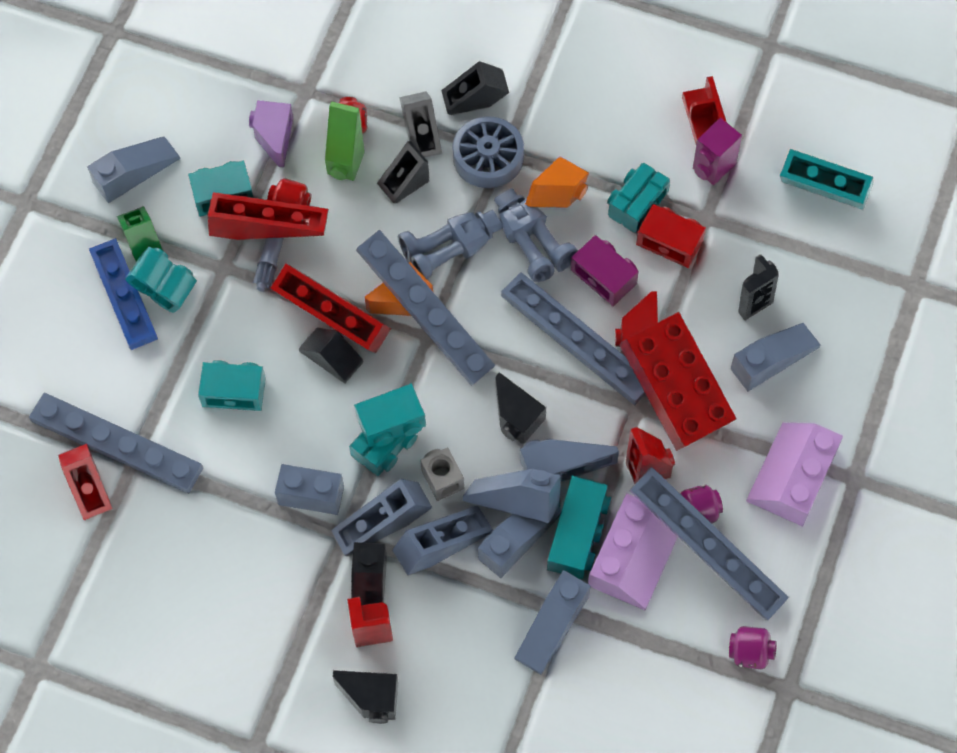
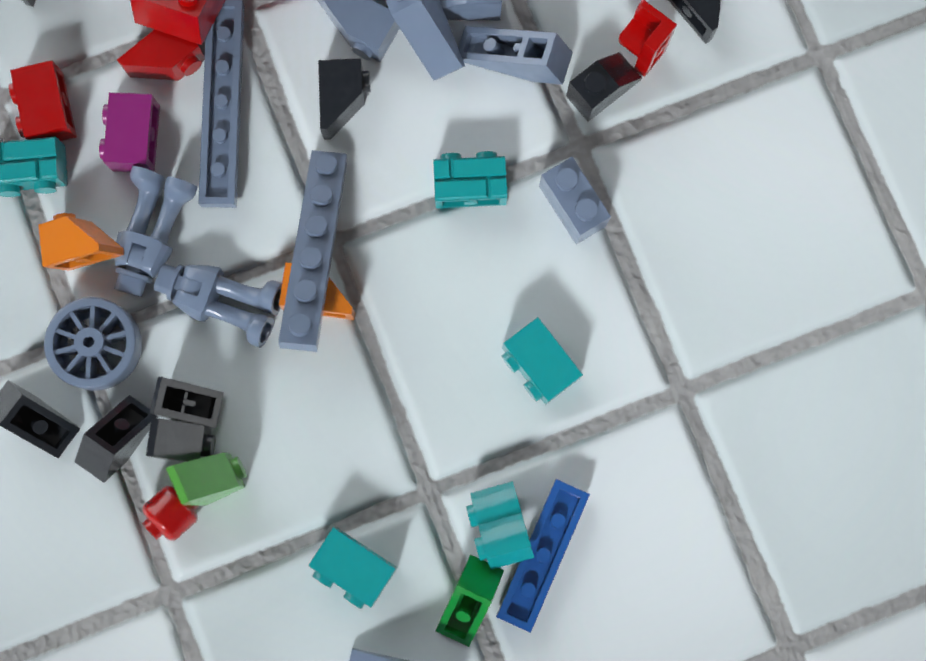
camera: 135 degrees left, 15 degrees up
(85, 481) = (746, 408): red slope -> none
(116, 442) = (684, 421): sand blue plate -> none
(262, 219) = (351, 484): red slope -> none
(268, 263) = (384, 452): sand blue piece -> none
(272, 128) = (245, 579): medium lavender slope -> none
(290, 192) = (306, 489): red head -> none
(330, 308) = (389, 338): red brick -> none
(332, 353) = (428, 308): black slope -> none
(380, 148) = (179, 440): none -> black slope
(383, 515) = (540, 118): sand blue slope -> none
(390, 416) = (452, 173): teal brick -> none
(442, 485) = (456, 90): light grey brick -> none

